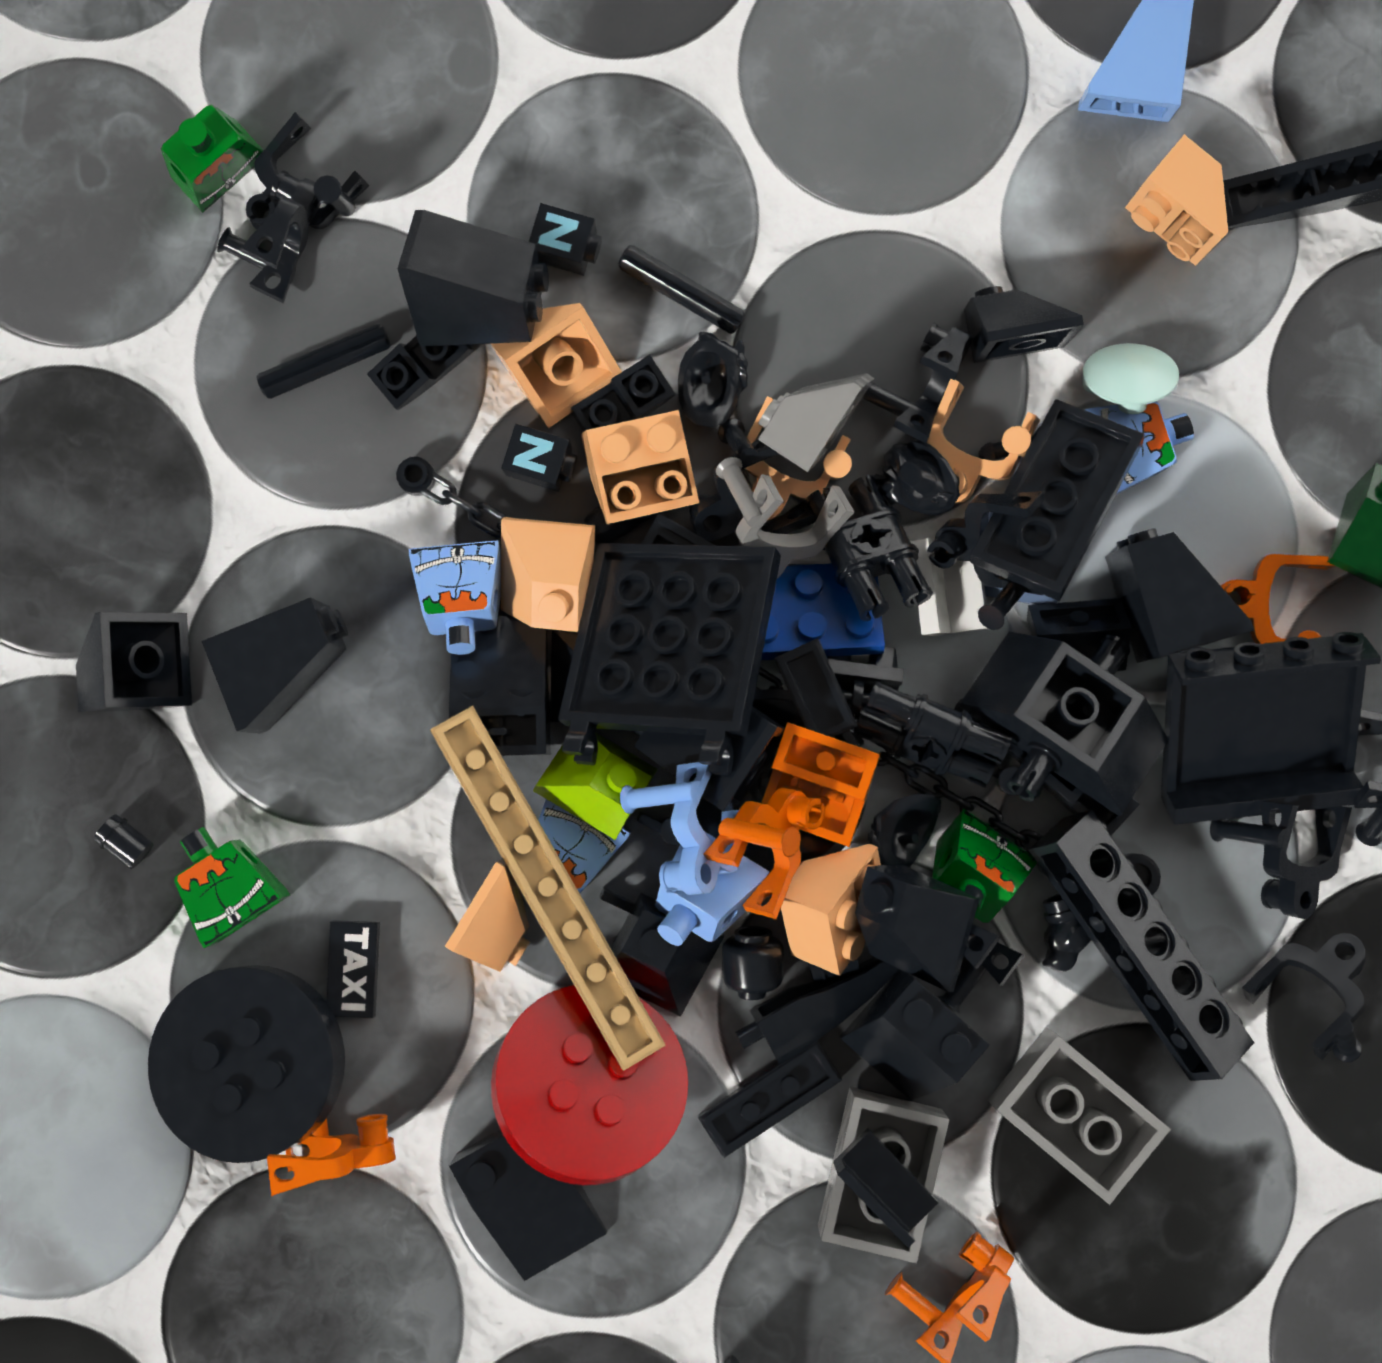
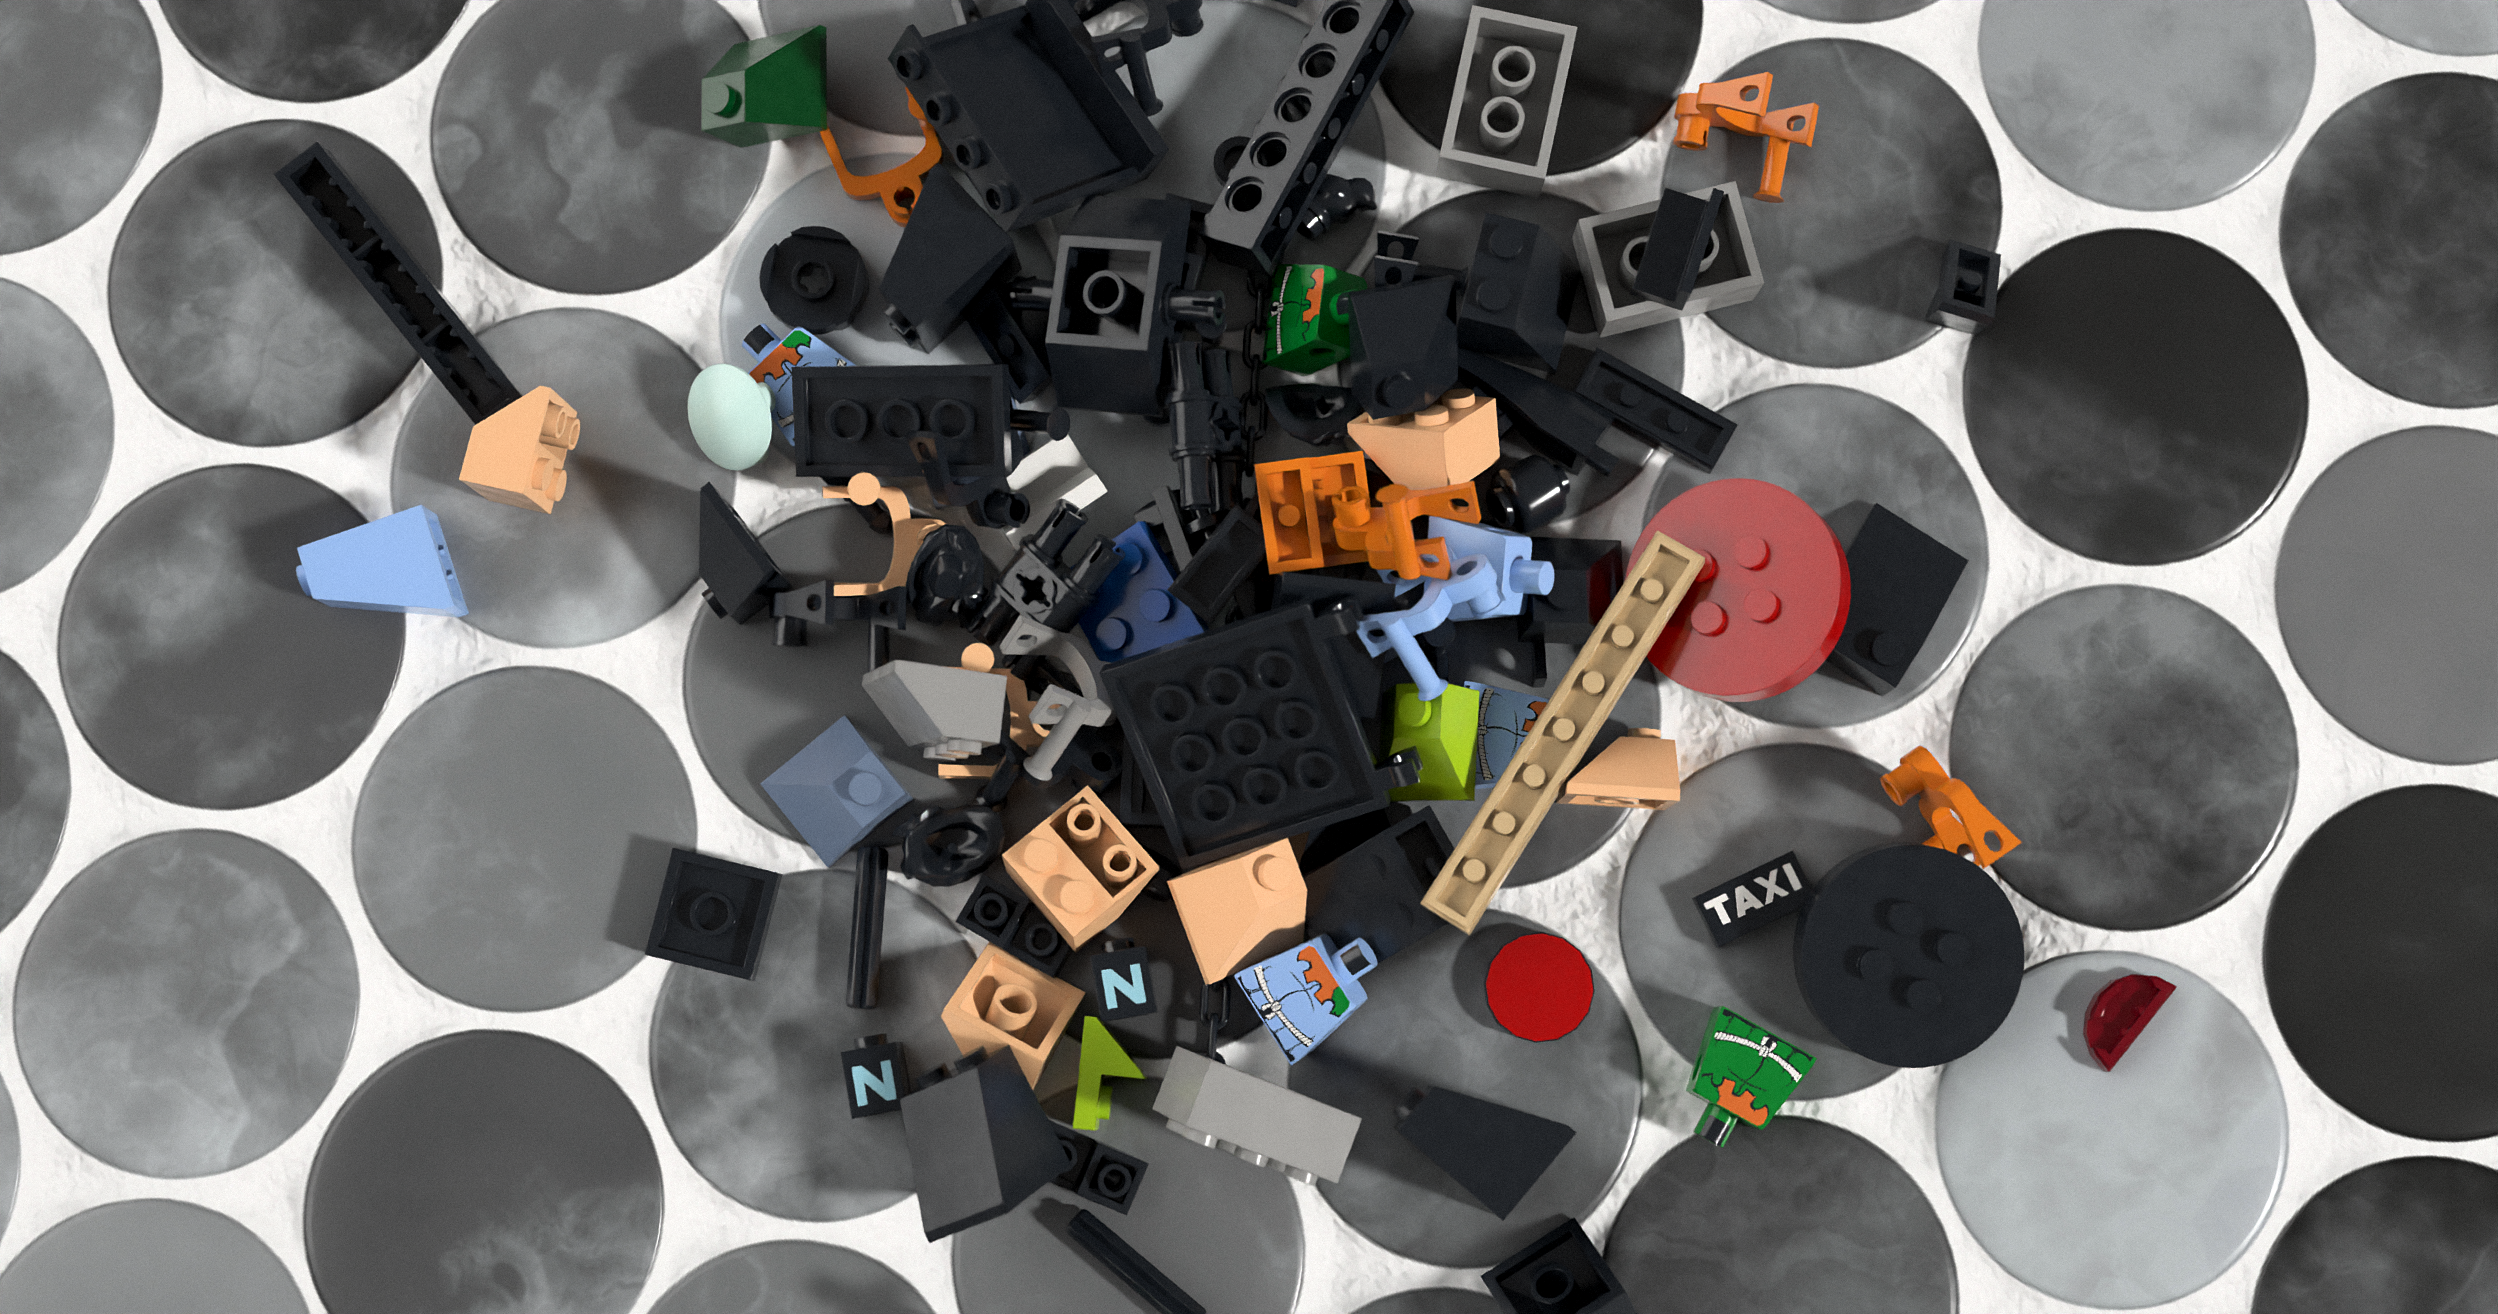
camera: 115 degrees left, 5 degrees down
(120, 1202) = (2120, 1014): none -> dark red tile
(123, 841) = (1754, 1210): black piece -> none
(373, 769) = (1539, 987): none -> red tile
(380, 499) = (1255, 1118): none -> light grey brick
(491, 413) = (1099, 1057): none -> lime slope
(750, 179) = (713, 914): none -> black plate
(797, 318) = (836, 791): none -> sand blue slope
(1234, 491) = (796, 256): none -> black plate

